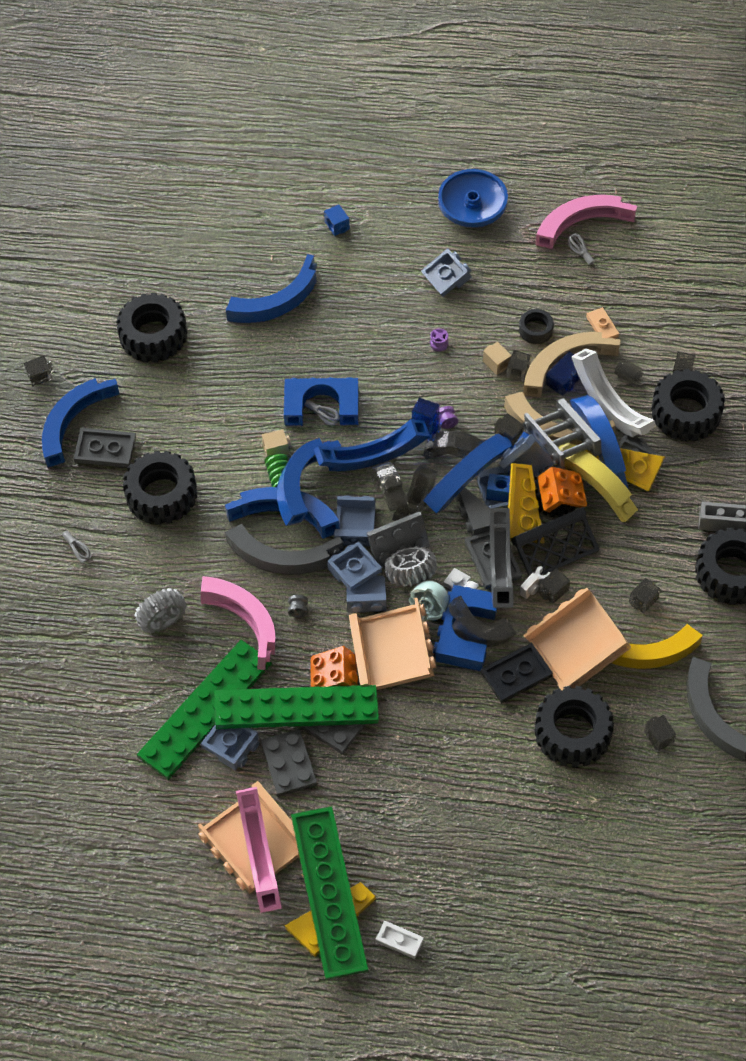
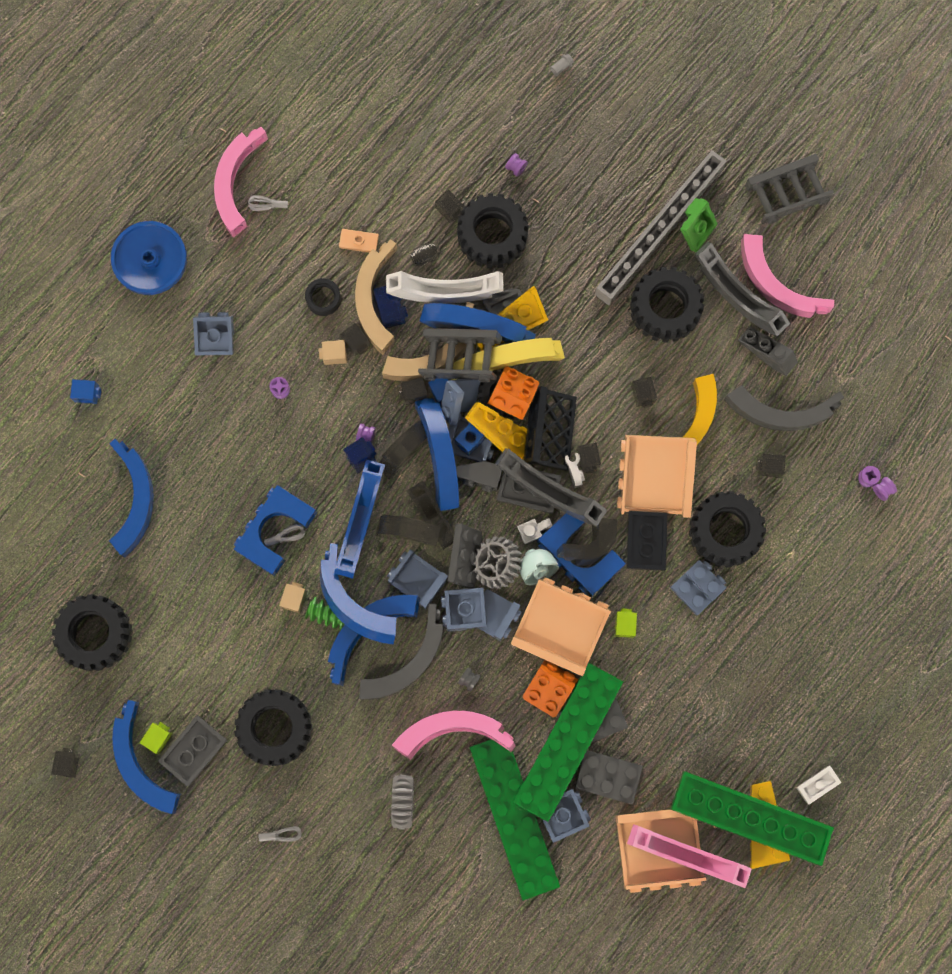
camera: 60 degrees left, 20 degrees up
(99, 416) = (156, 737): none -> lime brick
(431, 696) = (625, 623): none -> lime brick
(507, 738) = (698, 587): none -> sand blue plate
(712, 825) = (867, 480): none -> medium lavender wheel
(713, 840) = (884, 488): none -> medium lavender wheel

